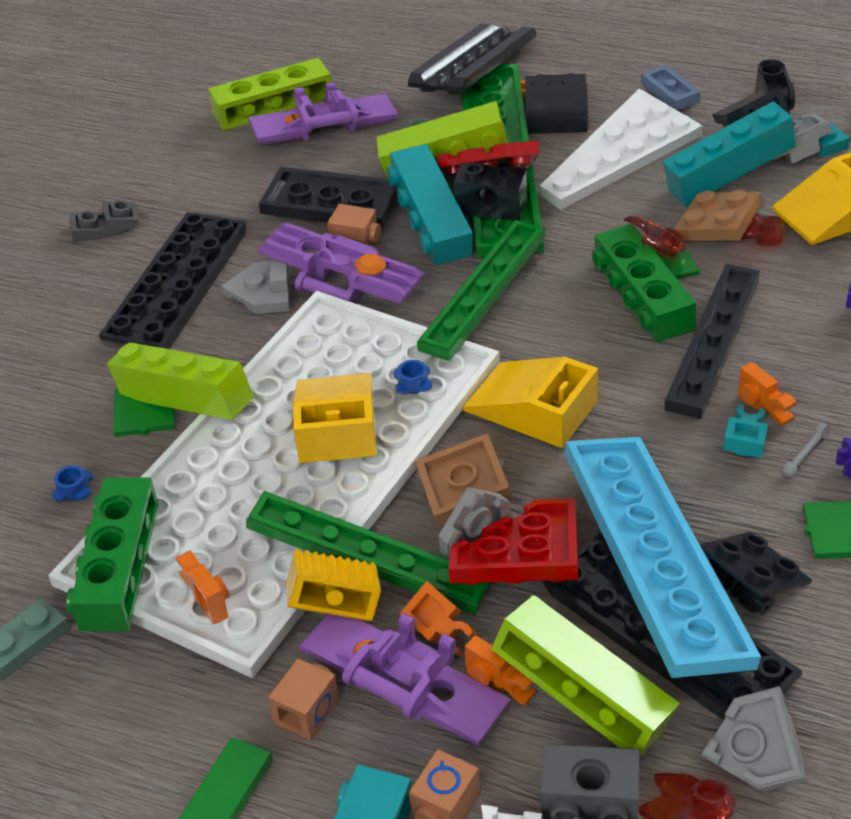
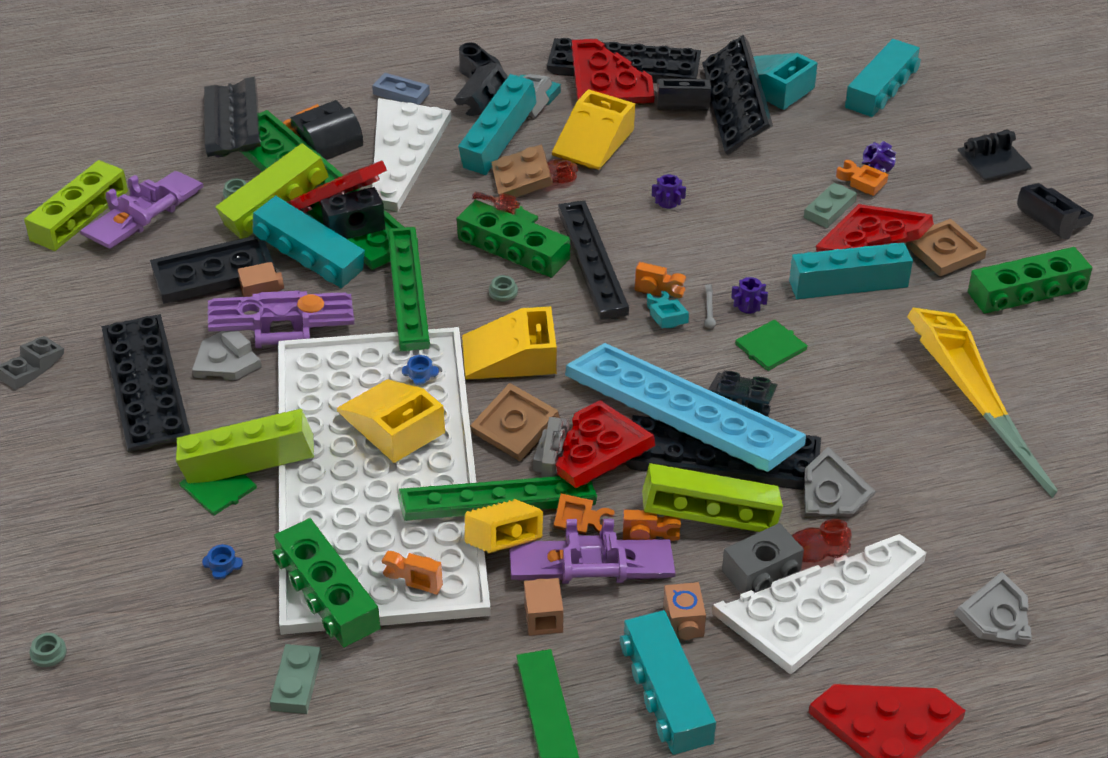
camera: 40 degrees left, 0 degrees up
(587, 331) = (503, 288): none -> sand green plate

